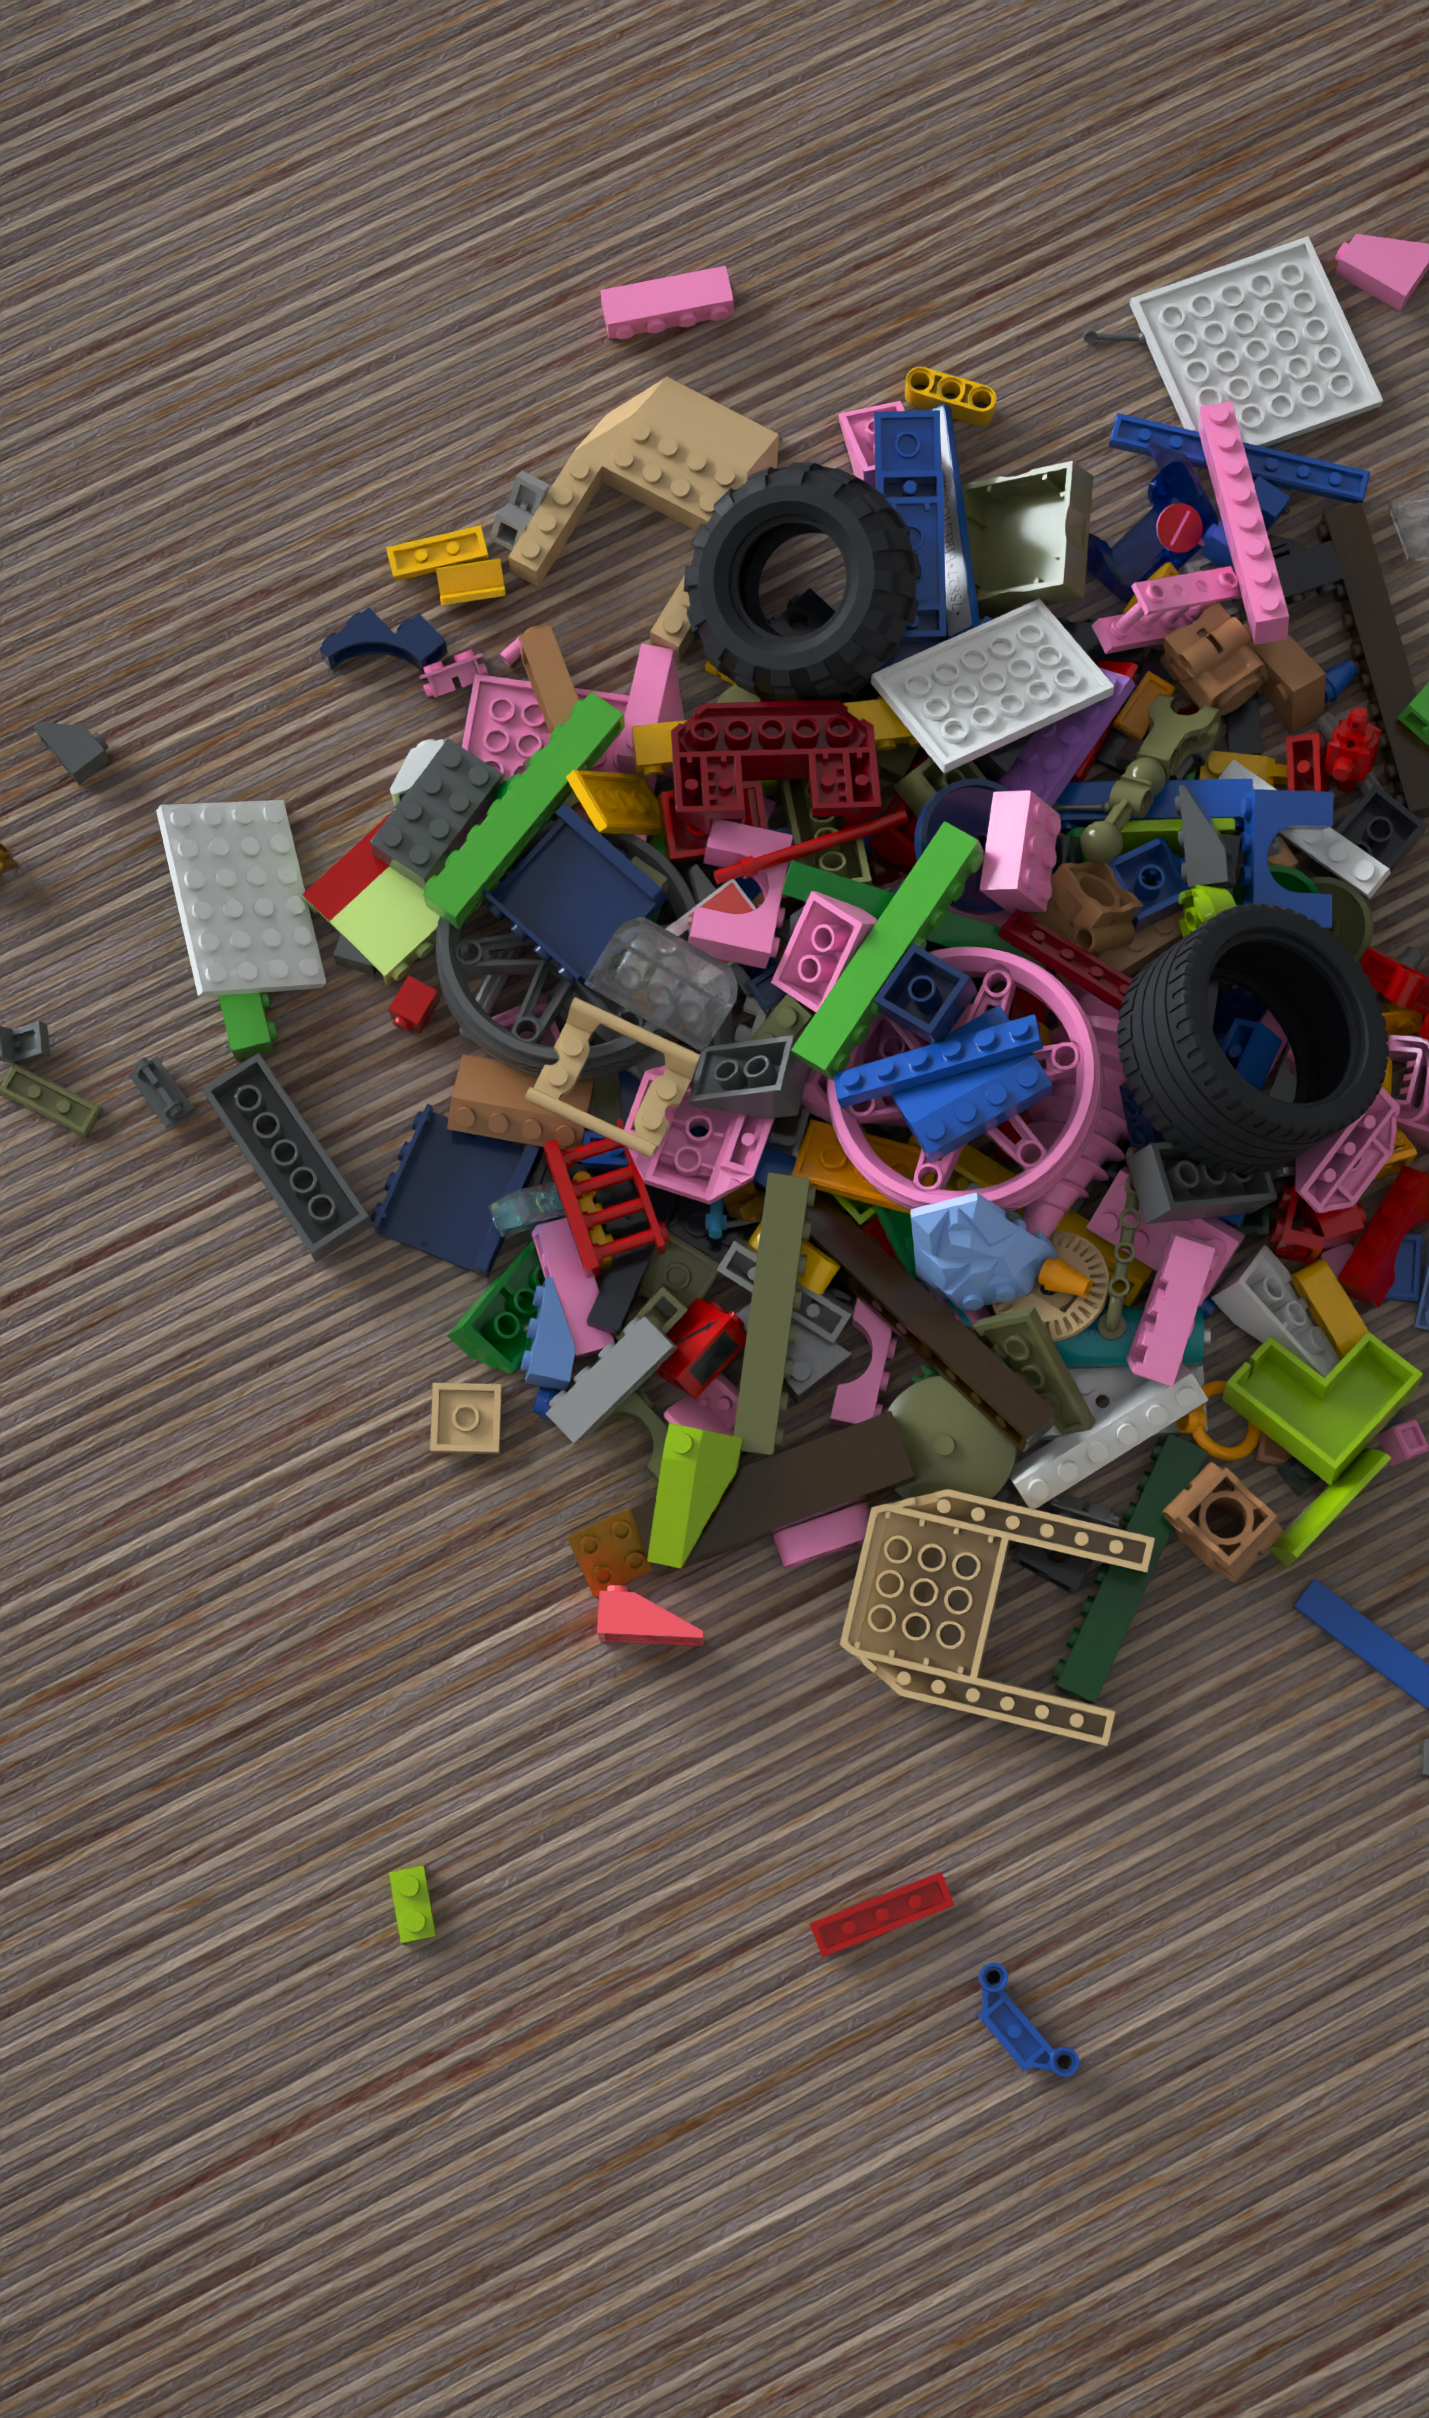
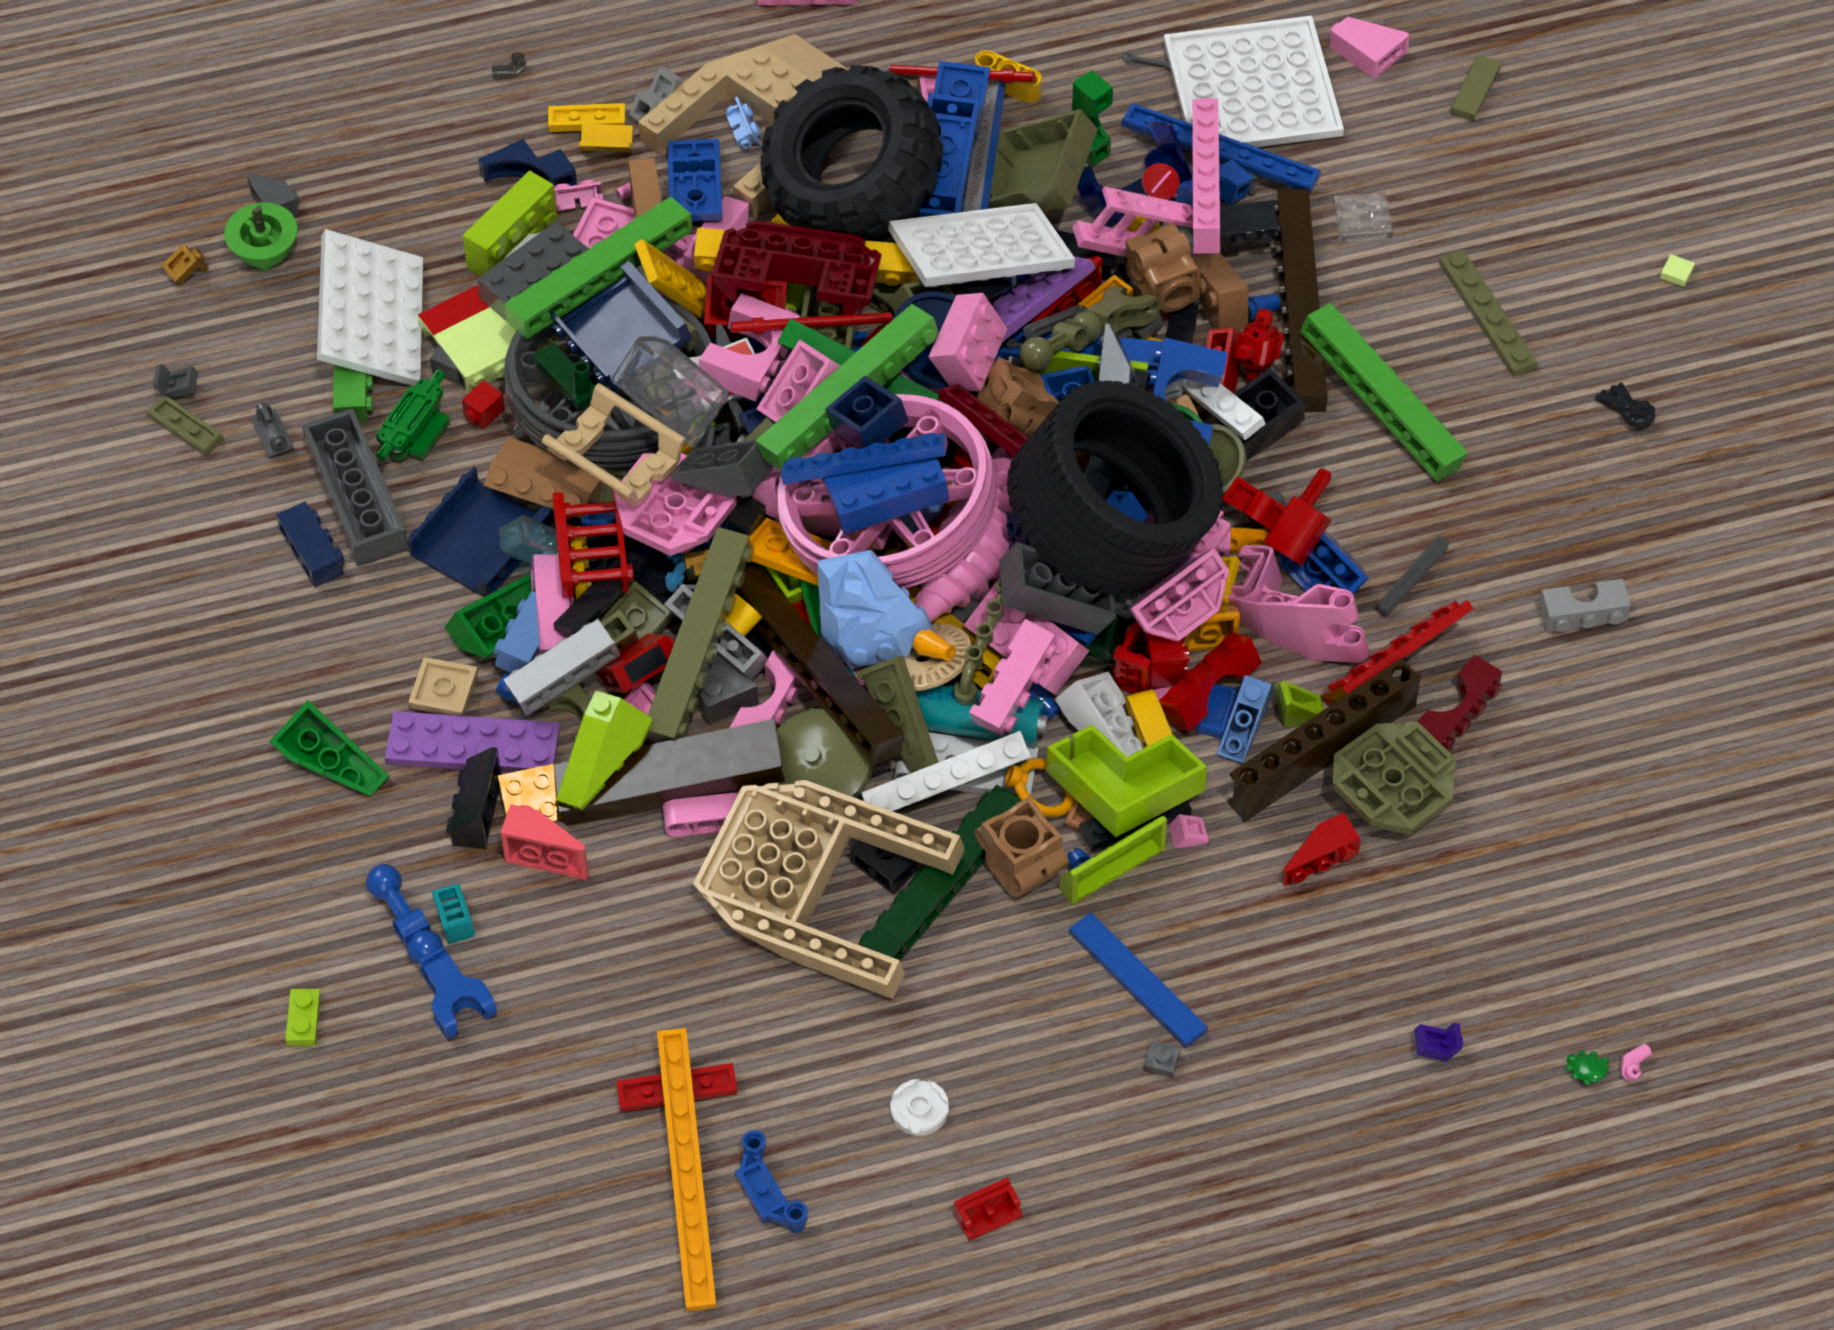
camera: 10 degrees right, 20 degrees down
(74, 809) = (261, 234): none -> bright green piece
(252, 1246) = (311, 544): none -> dark blue brick
(325, 494) = (511, 69): none -> clear smoke arm
(335, 1049) = (414, 421): none -> green piece
(345, 1534) = (323, 748): none -> green wedge
(385, 741) = (522, 211): none -> lime brick
(520, 1486) = (452, 739): none -> medium lavender plate
(521, 974) = (569, 378): none -> dark green piece
(540, 1791) = (427, 950): none -> blue piece
(545, 1574) = (476, 800): none -> black slope
(568, 1752) = (459, 928): none -> teal slope
(600, 630) = (696, 177): none -> blue bracket
(631, 516) = (742, 116): none -> light blue hinge
(921, 2027) = (686, 1170): none -> light orange plate
(955, 404) = (1008, 76): none -> red bar
(1081, 441) = (1094, 96): none -> green arch
(1098, 765) = (1047, 324): none -> dark grey axle
(1170, 1879) = (919, 1107): none -> white tile
(1283, 2004) = (987, 1209): none -> red hinge
(1284, 1509) = (1077, 857): none -> blue hinge

